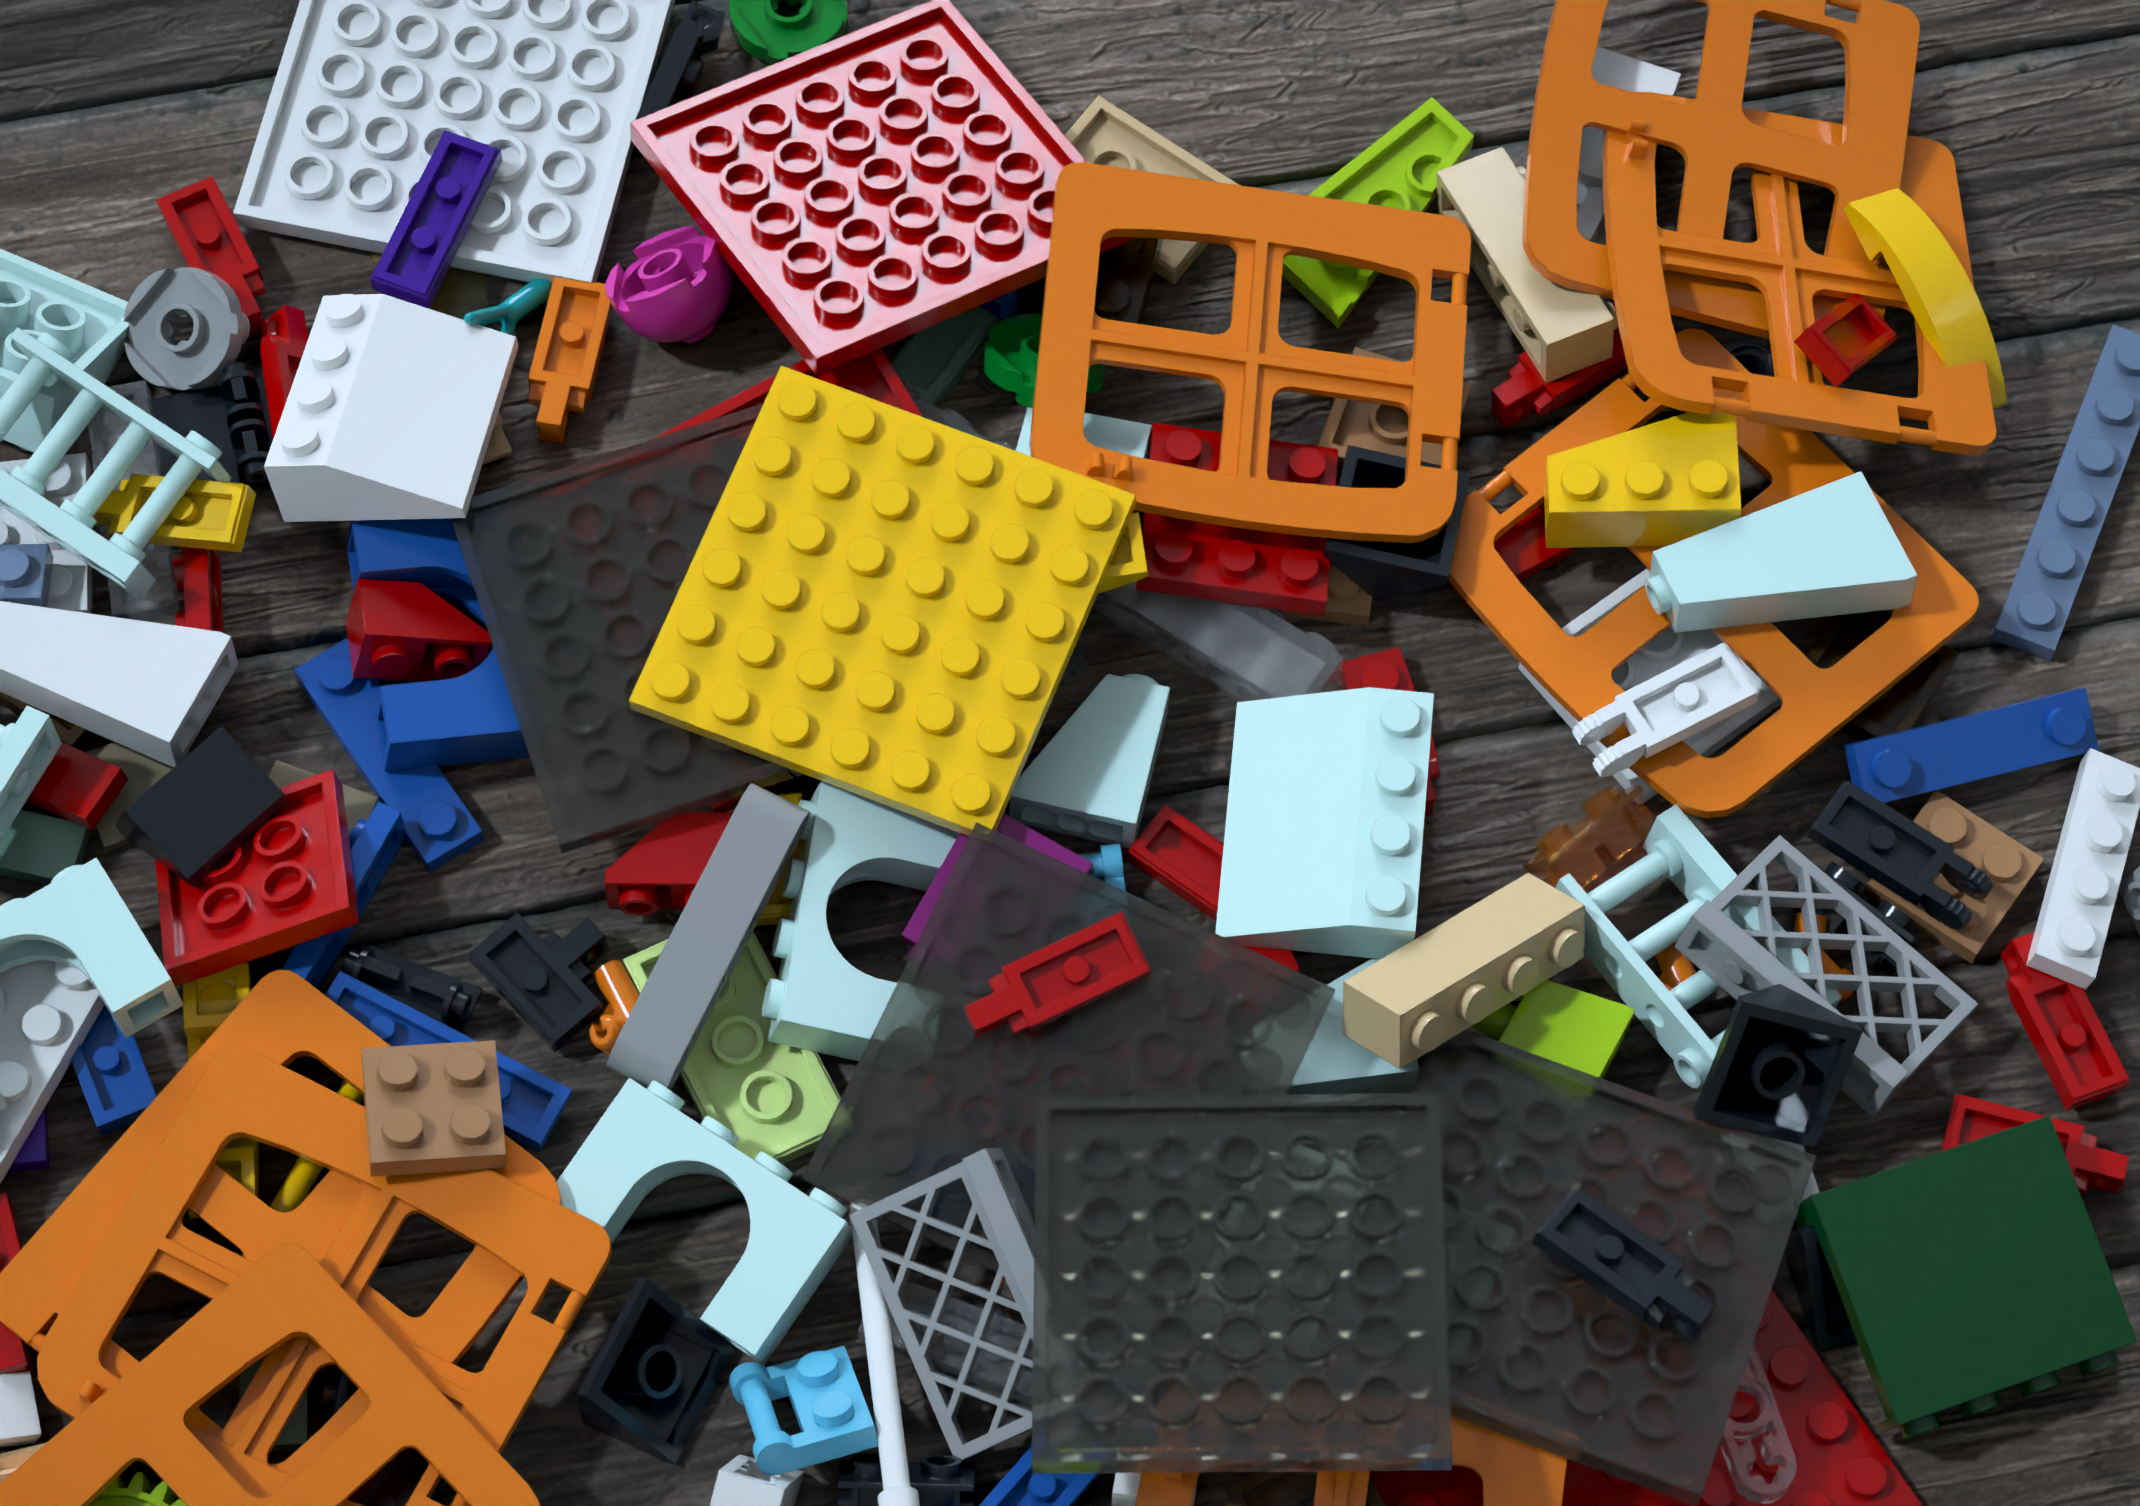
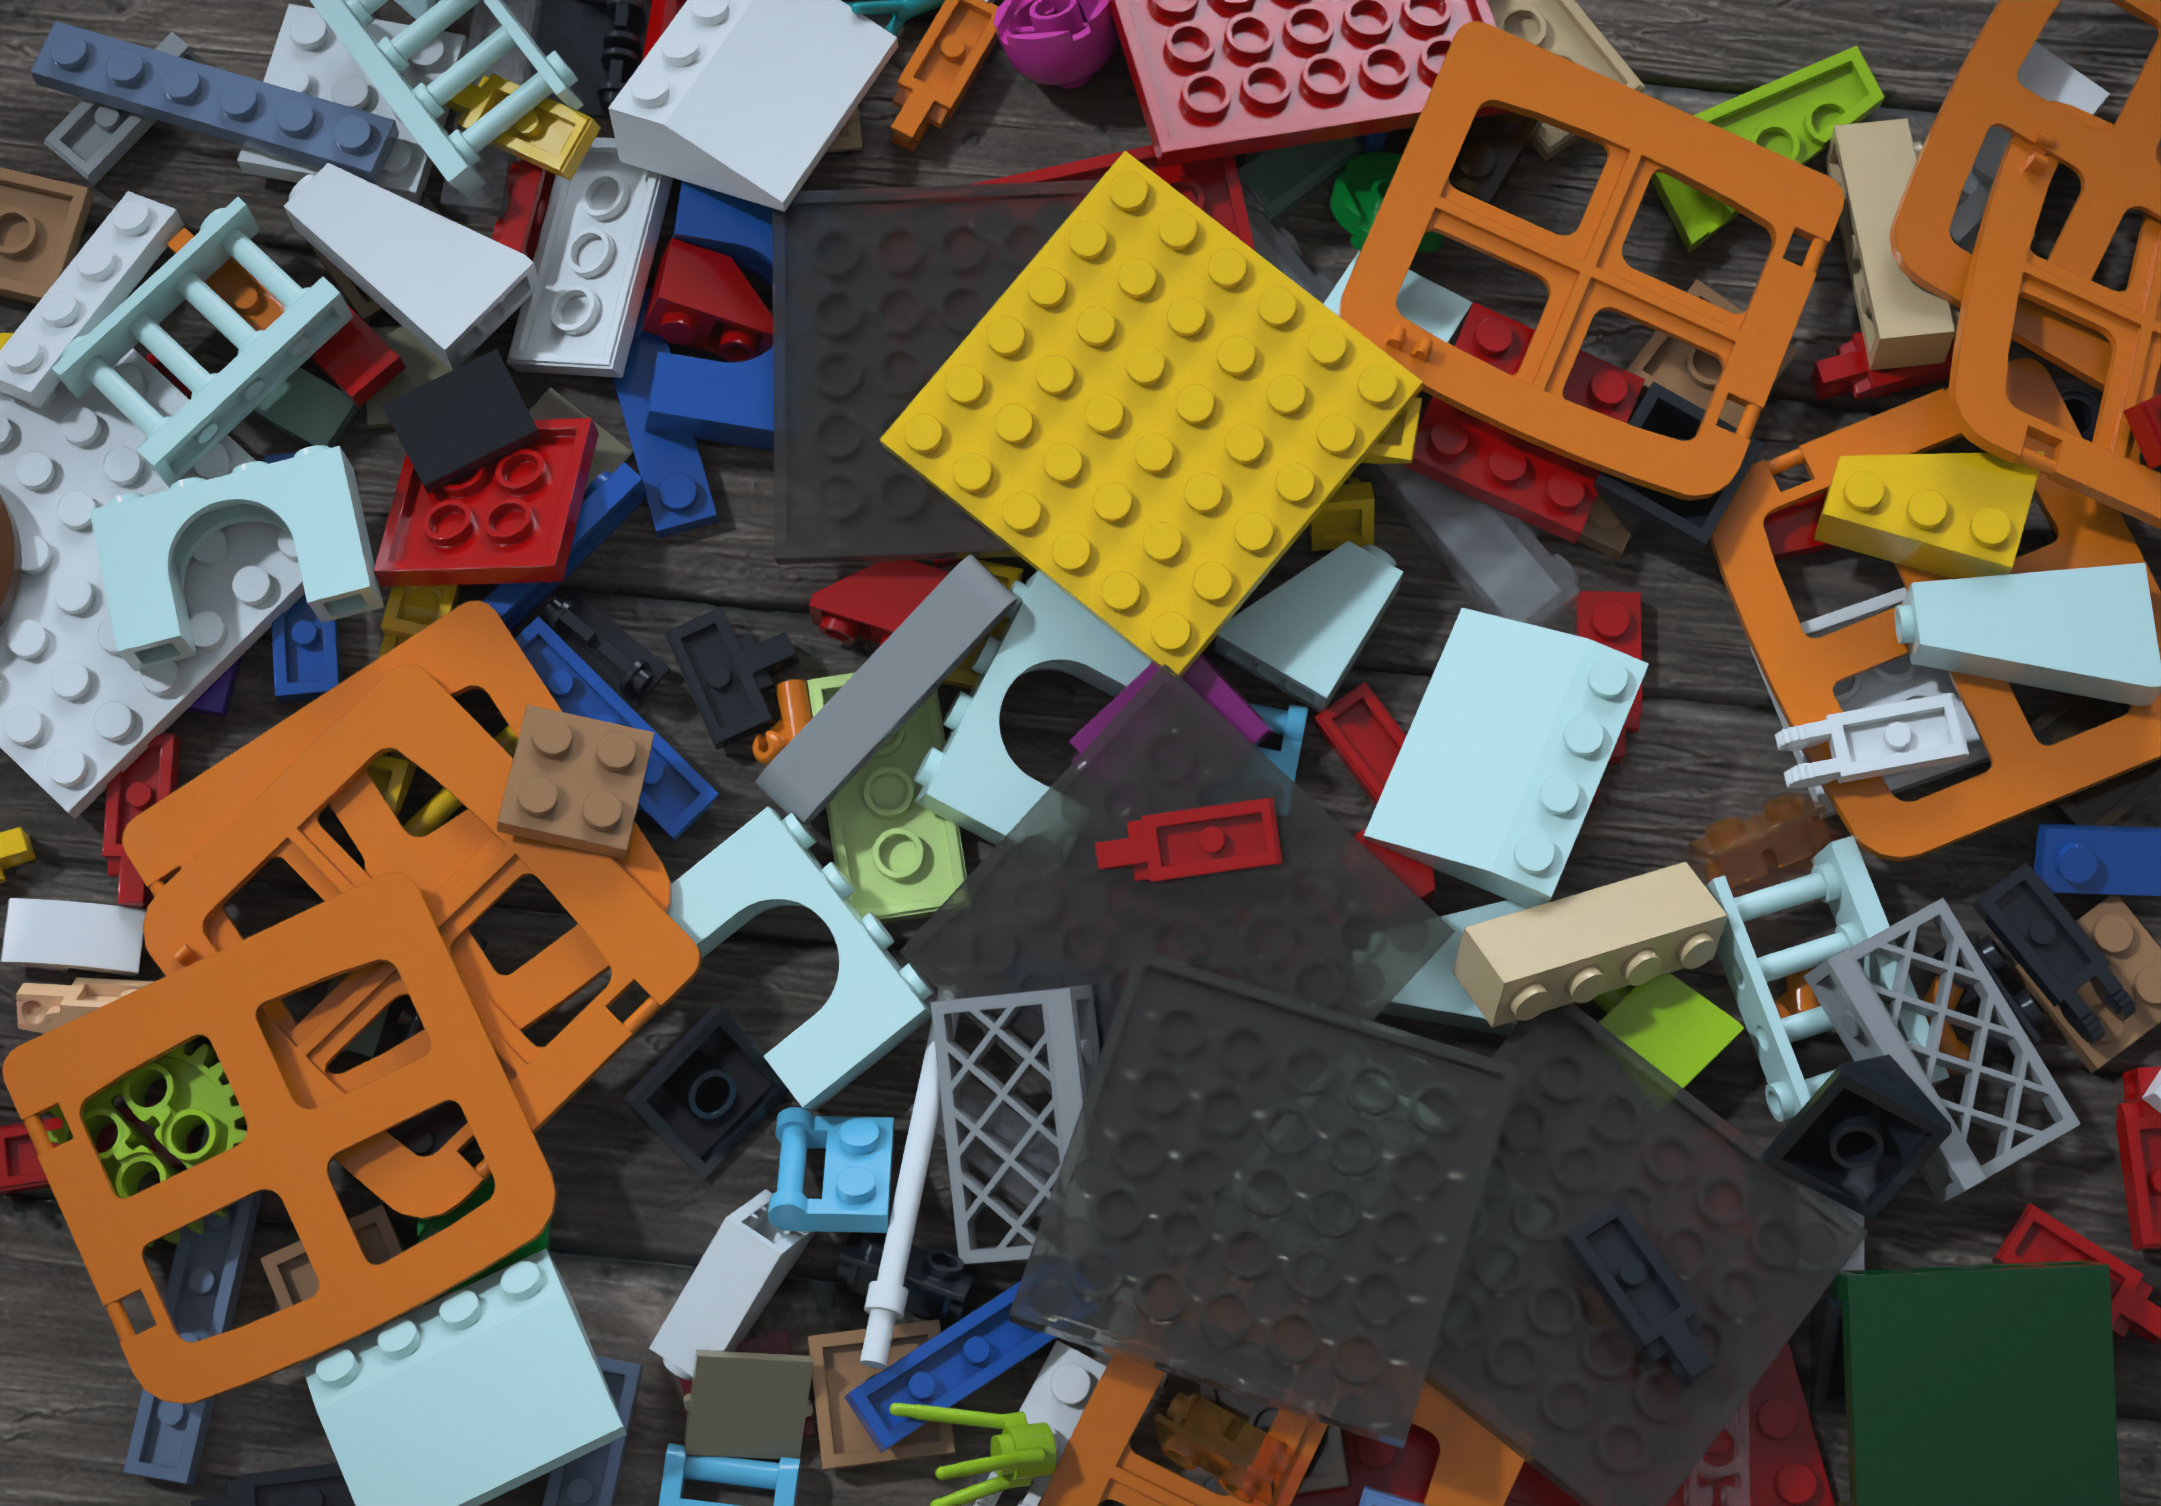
camera: 20 degrees right, 10 degrees up
(287, 631) = (591, 267): none -> white tile
(1095, 655) = (1345, 518): none -> yellow tile

